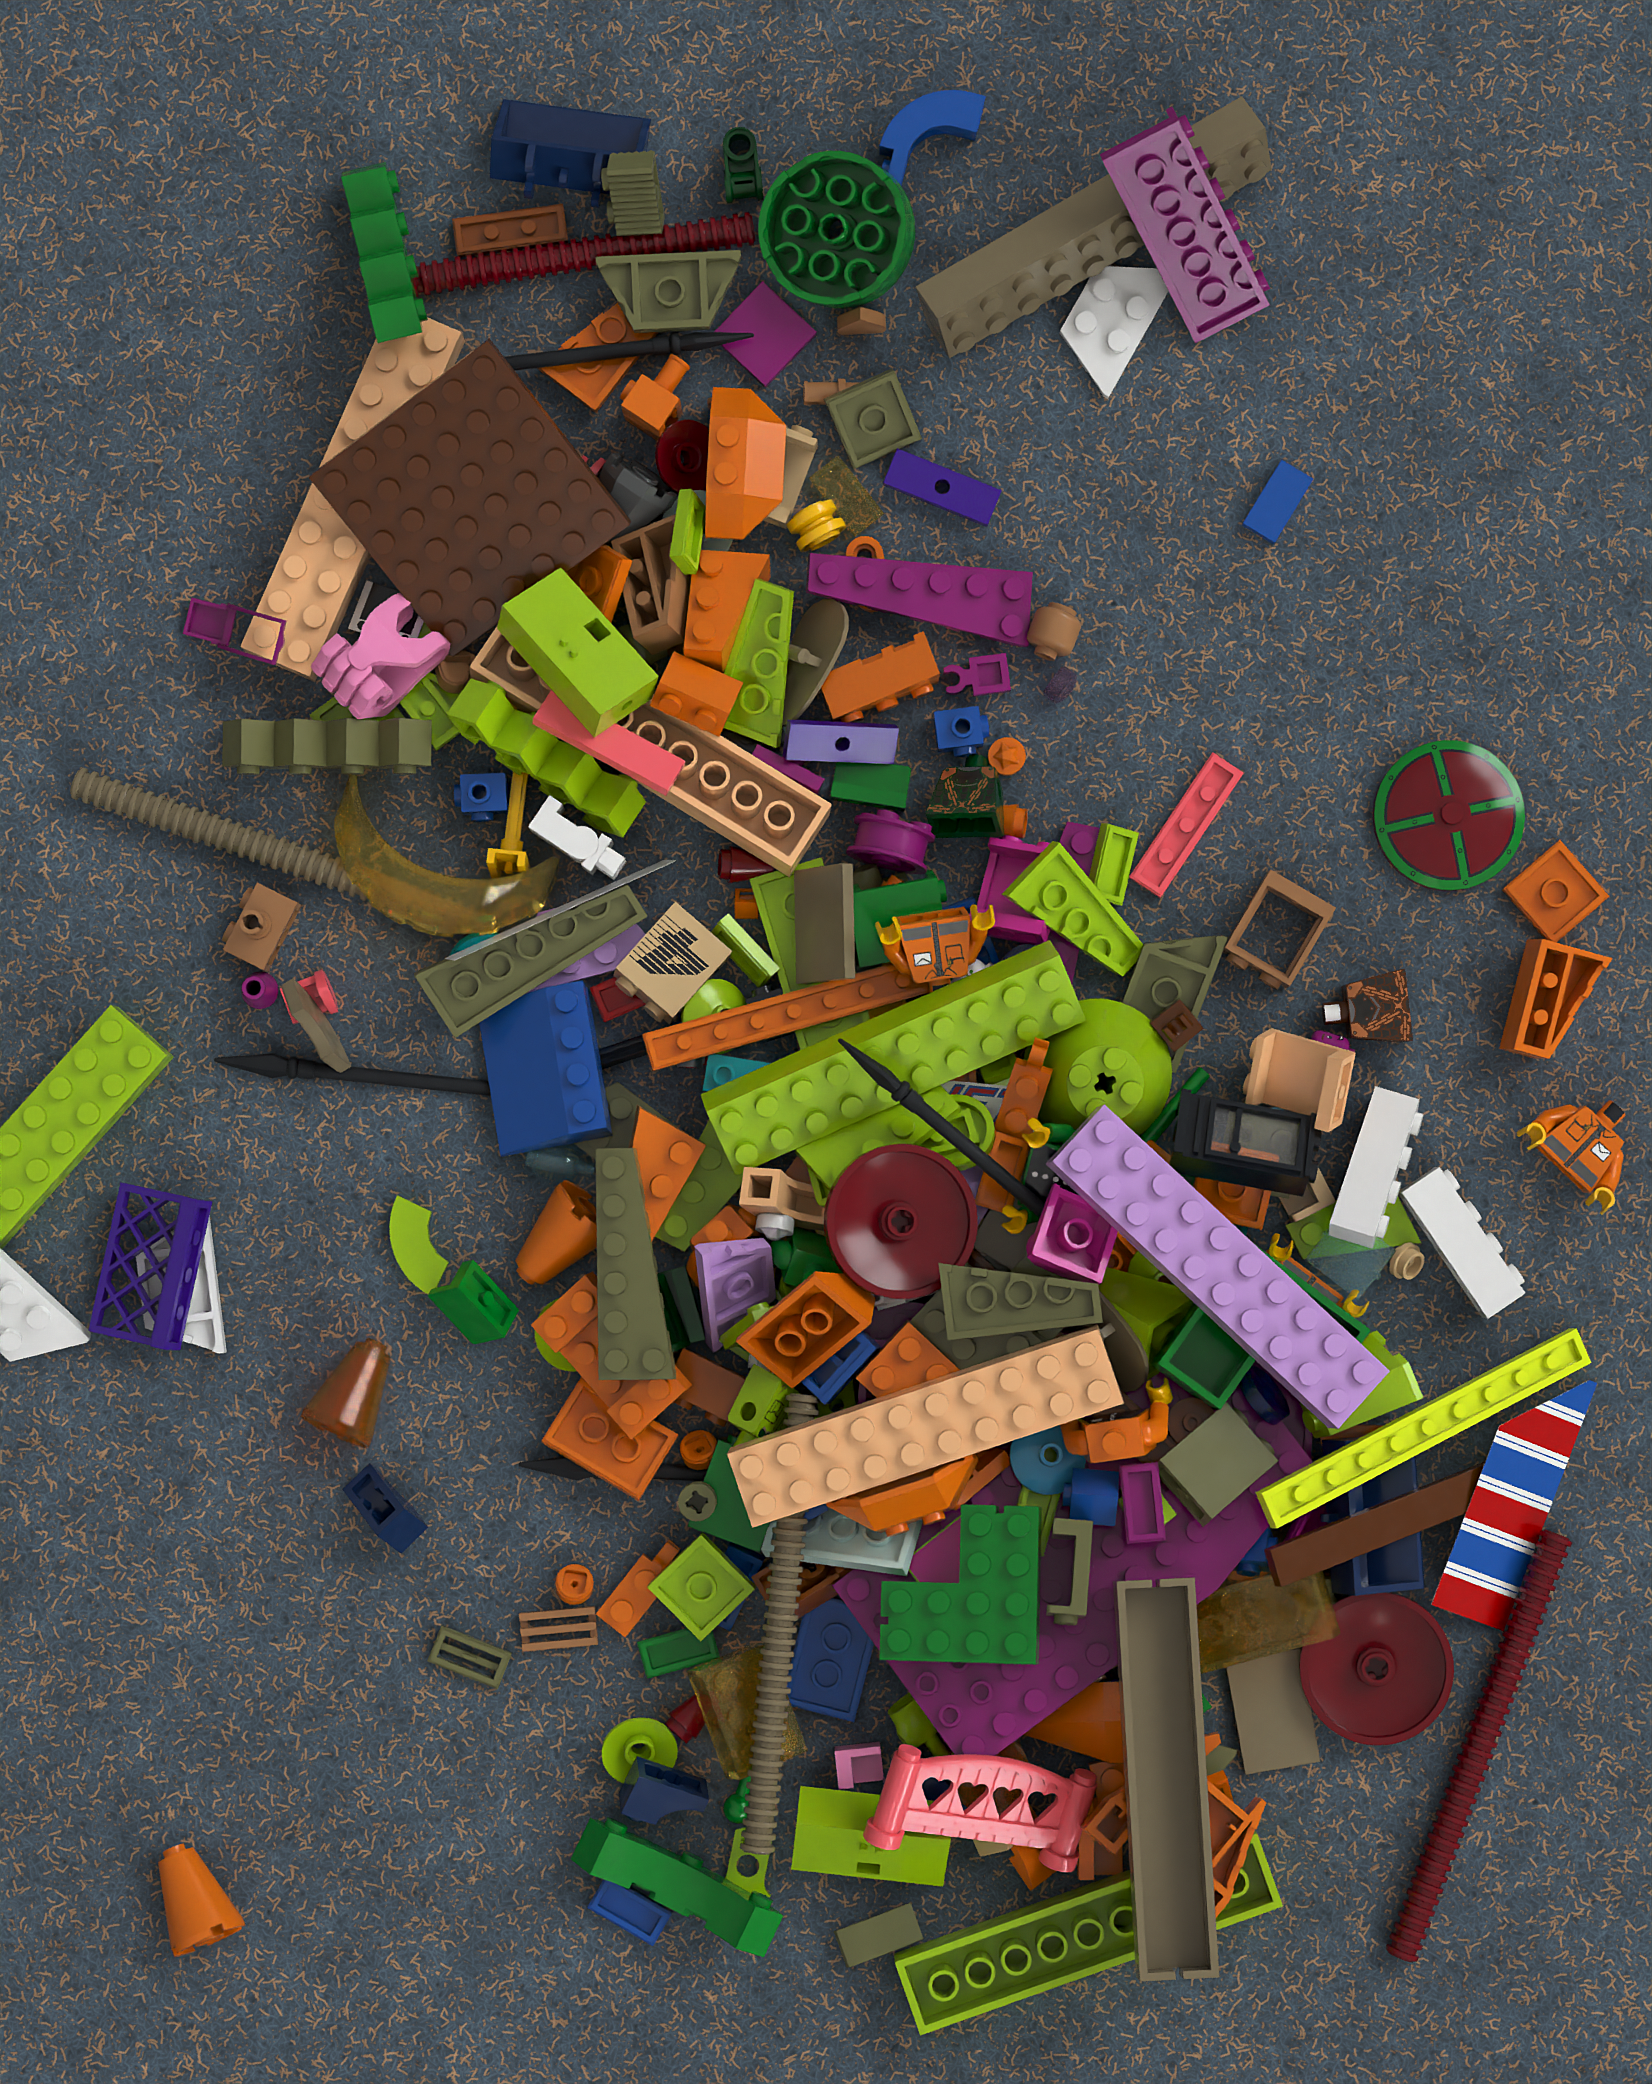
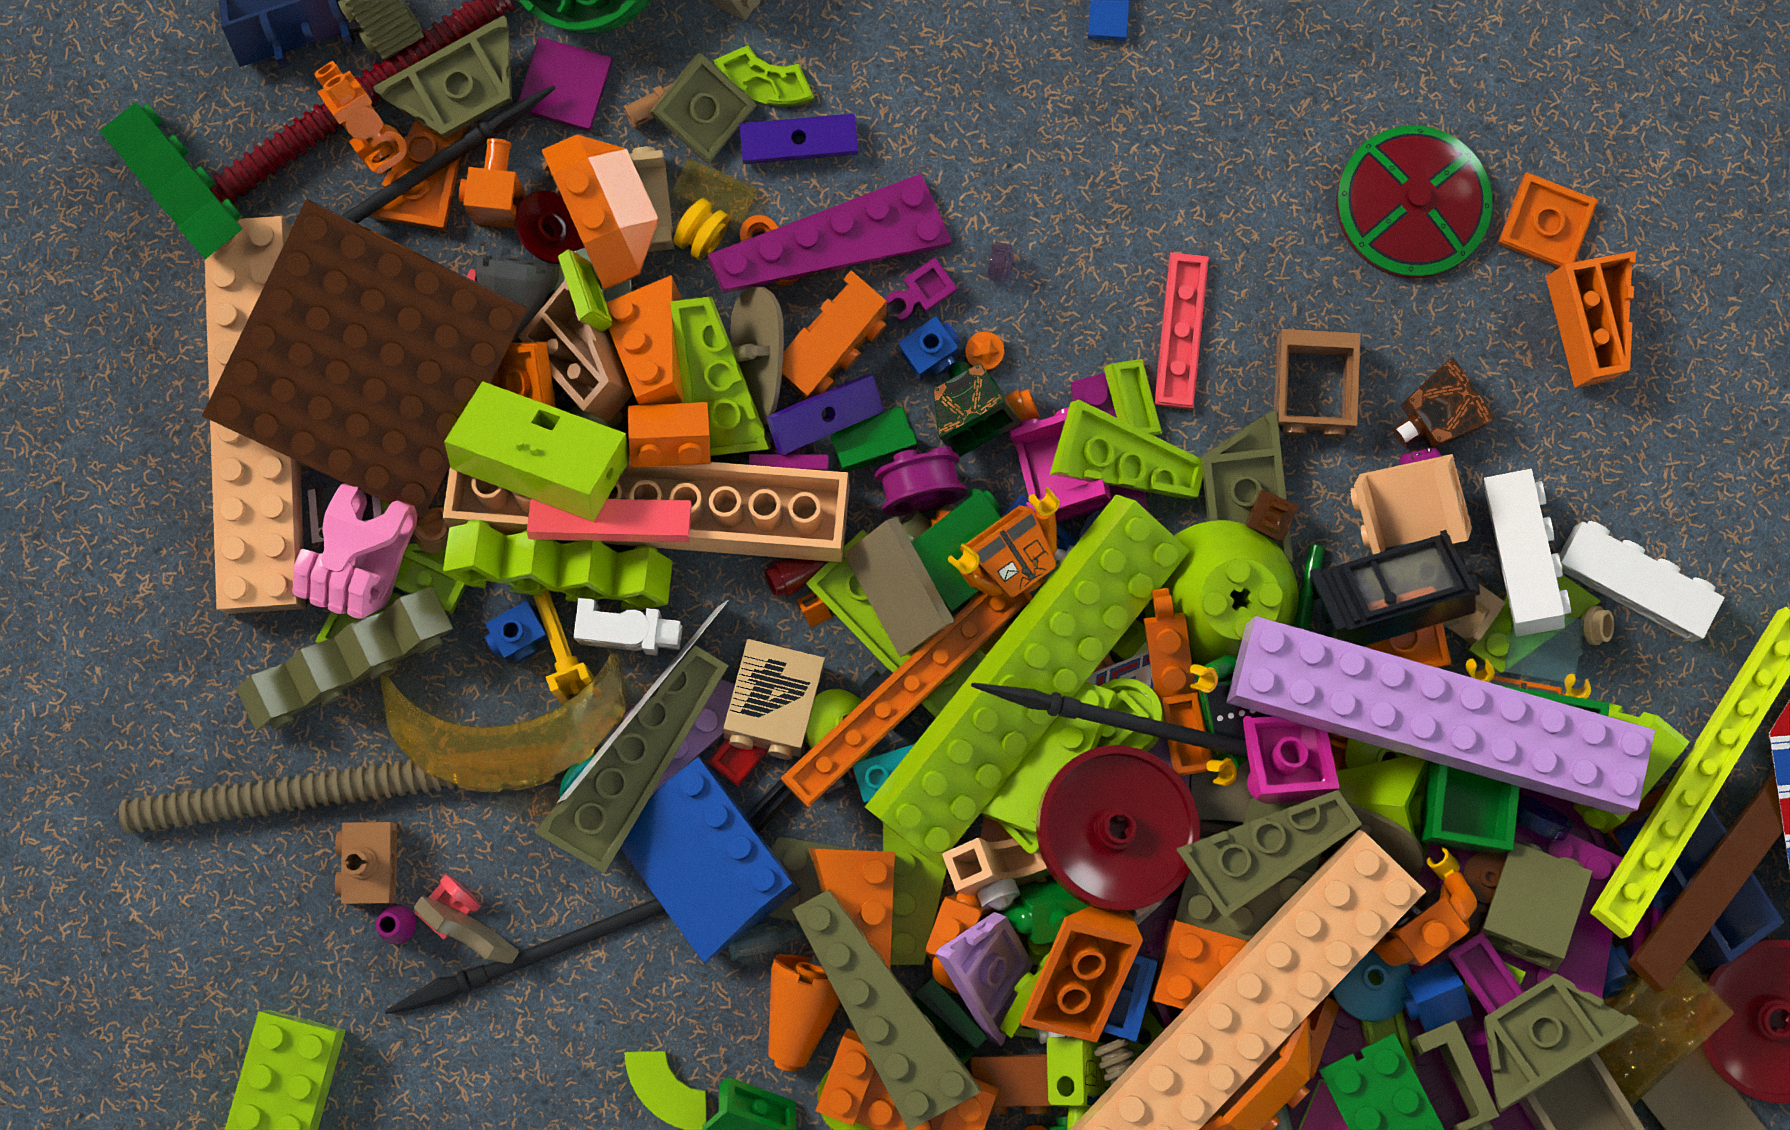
camera: 30 degrees left, 5 degrees down
(216, 623) = (185, 598): magenta piece -> none
(510, 230) = (276, 108): dark orange tile -> none
(570, 283) = (353, 109): none -> orange hips
(745, 951) = (838, 652): lime tile -> none
(861, 321) = (647, 28): medium nougat tile -> none
(938, 420) = (765, 82): none -> lime tile
(1053, 631) = (968, 215): medium nougat head -> none
(1161, 1572) = (1546, 1036): none -> olive wing
(1582, 1147) = (1701, 438): orange torso -> none

